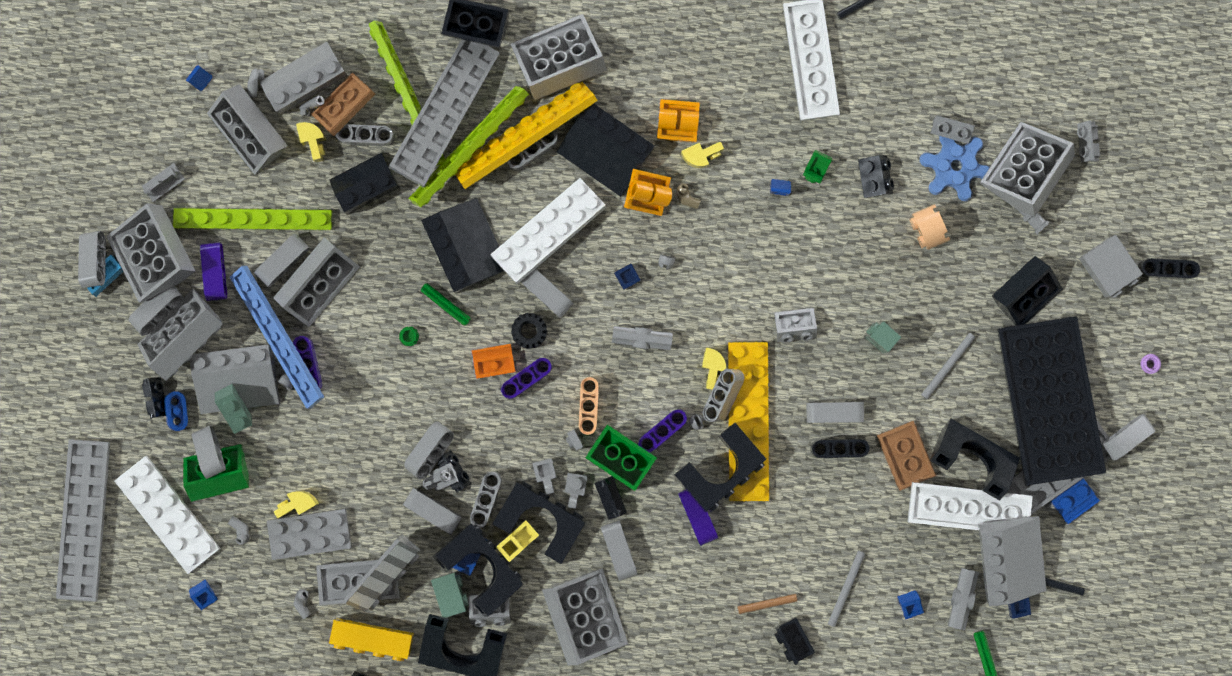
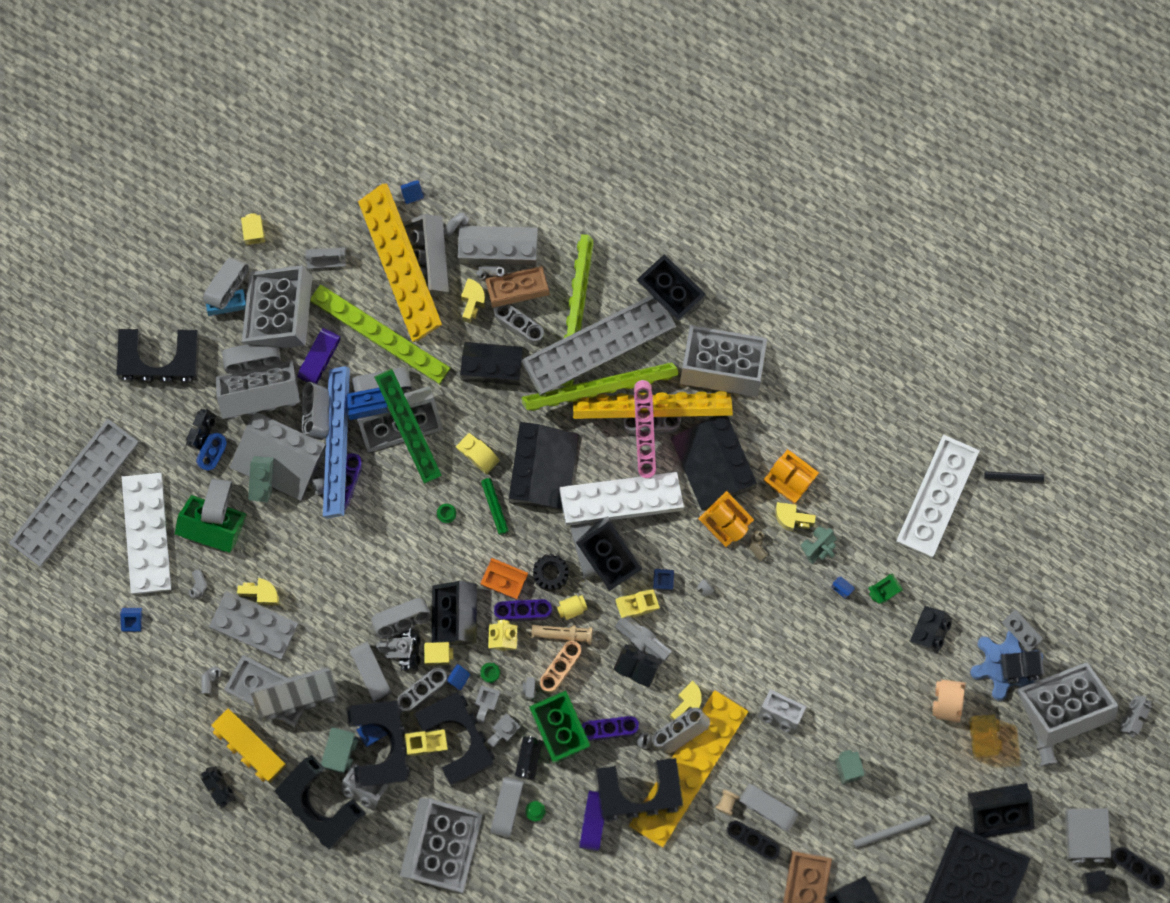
camera: 30 degrees right, 10 degrees down
(84, 197) = (253, 229): none -> light yellow brick
(102, 354) = (182, 367): none -> black arch
(229, 146) = (399, 262): none -> yellow plate
(241, 321) = (315, 410): none -> light grey beam
(281, 286) = (366, 403): none -> blue plate
(327, 284) = (407, 425): none -> green plate
(402, 268) = (478, 453): none -> light yellow brick
(471, 417) = (454, 613): none -> black slope
(479, 460) = (438, 654): none -> light yellow brick
(509, 468) = (458, 677): none -> blue slope
(523, 410) = (502, 636): none -> light yellow brick
(525, 154) = (644, 420): none -> bright pink beam
(532, 447) = (490, 672): none -> green tile
(565, 349) = (572, 607): none -> light yellow brick
(568, 285) = (608, 553): none -> black slope
(580, 371) = (571, 634): none -> tan pin
(619, 312) = (637, 604): none -> light yellow brick
(644, 538) = (535, 811): none -> green plate
(652, 363) = (637, 665): none -> black brick
(742, 165) = (822, 547): none -> sand green hips
(798, 430) = (727, 802): none -> tan bush
(971, 160) = (1021, 665): none -> black brick
(976, 239) = (984, 736): none -> clear yellow brick
(1141, 302) = (1095, 882): none -> black brick

